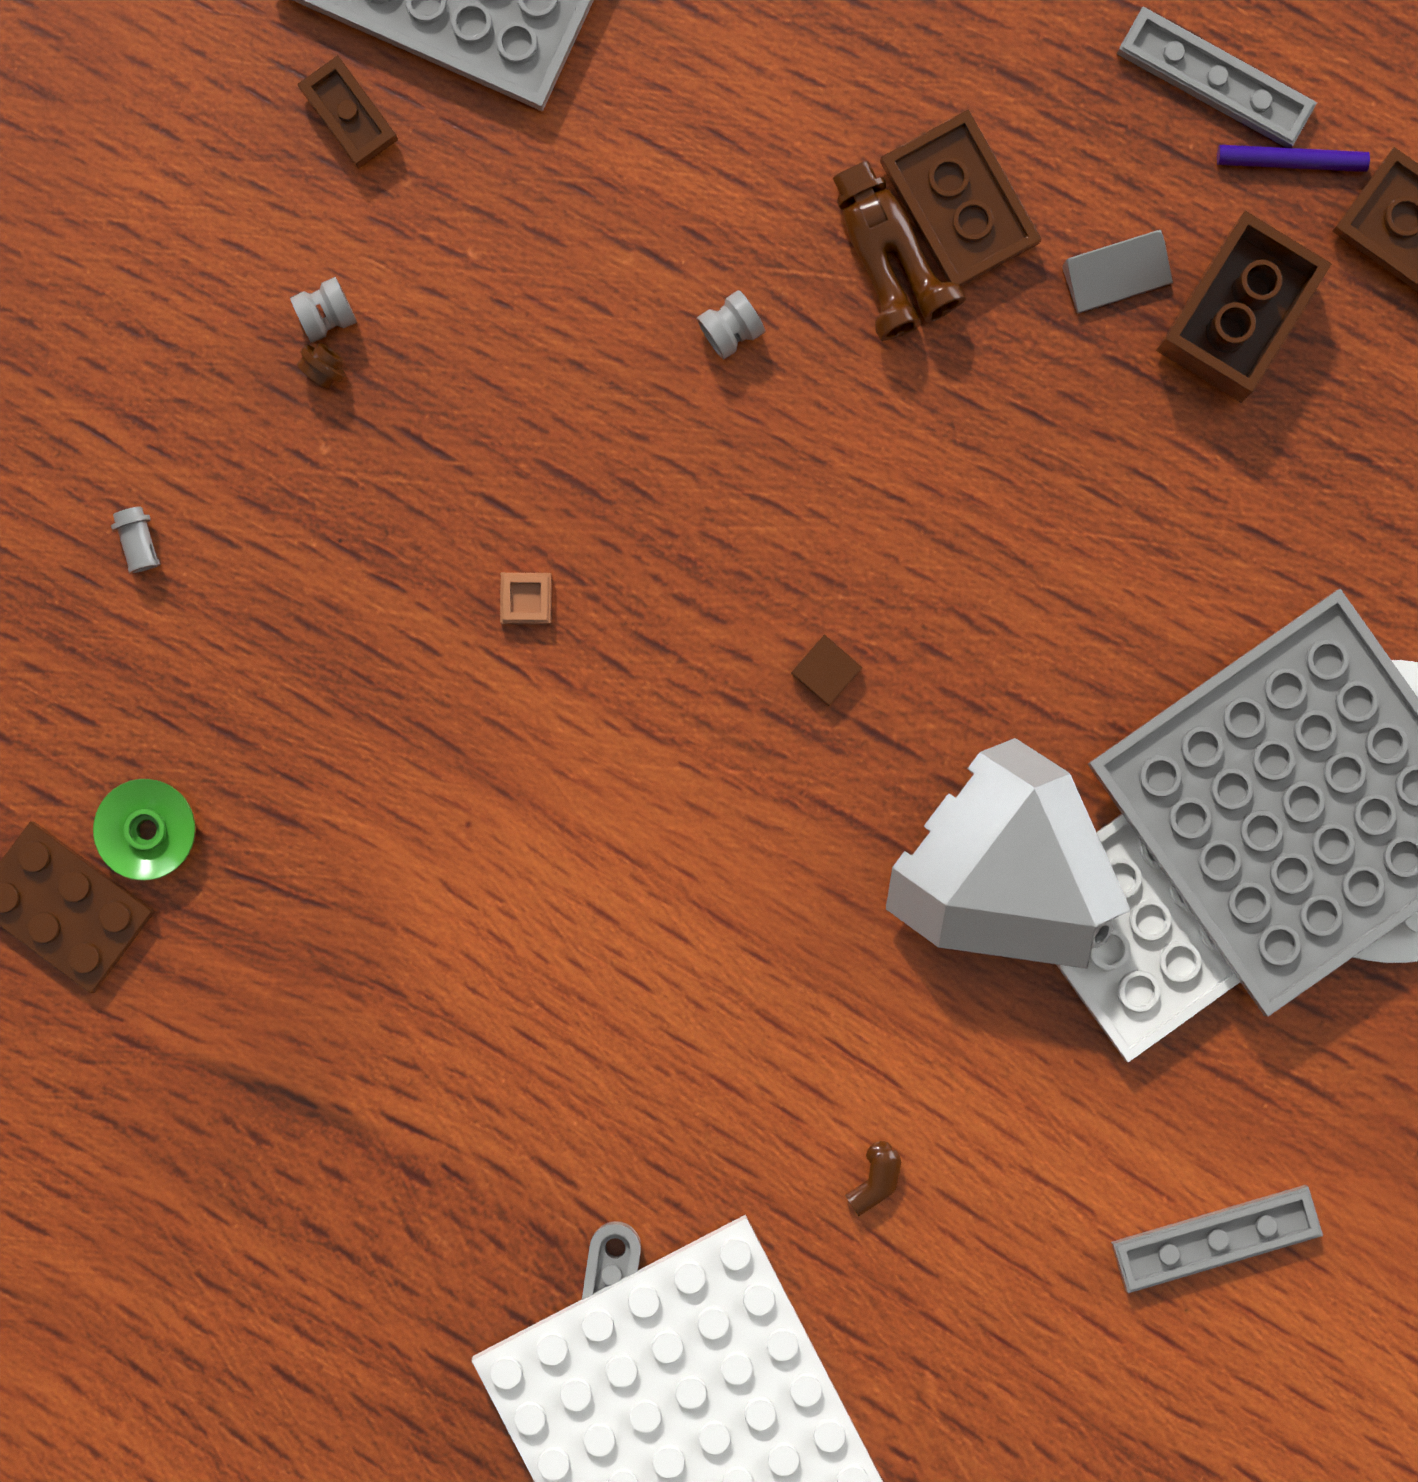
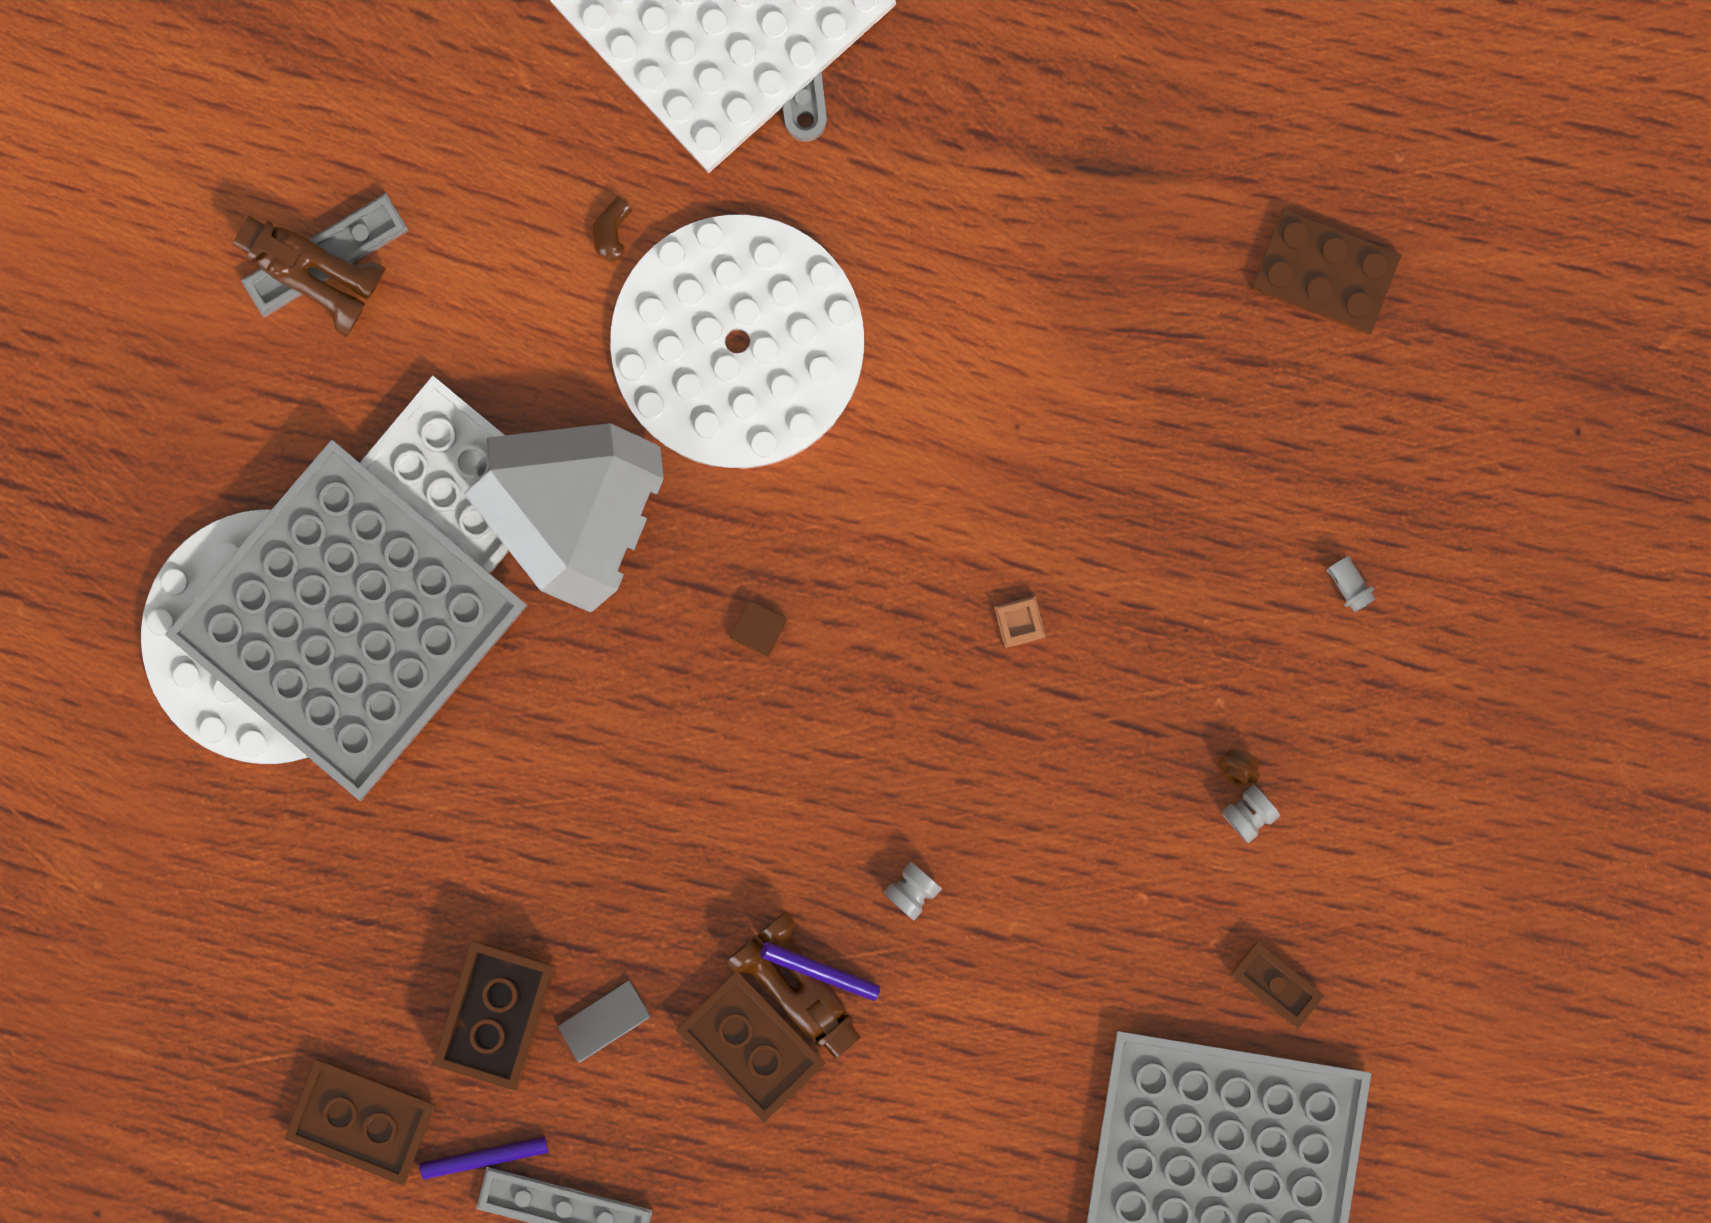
camera: 170 degrees right, 0 degrees up
(119, 823) = (1288, 332): bright green dish -> none
(746, 1083) = (749, 279): none -> white plate
(860, 259) = (820, 971): none -> dark purple bar
(1261, 1247) = (289, 256): none -> reddish brown piece

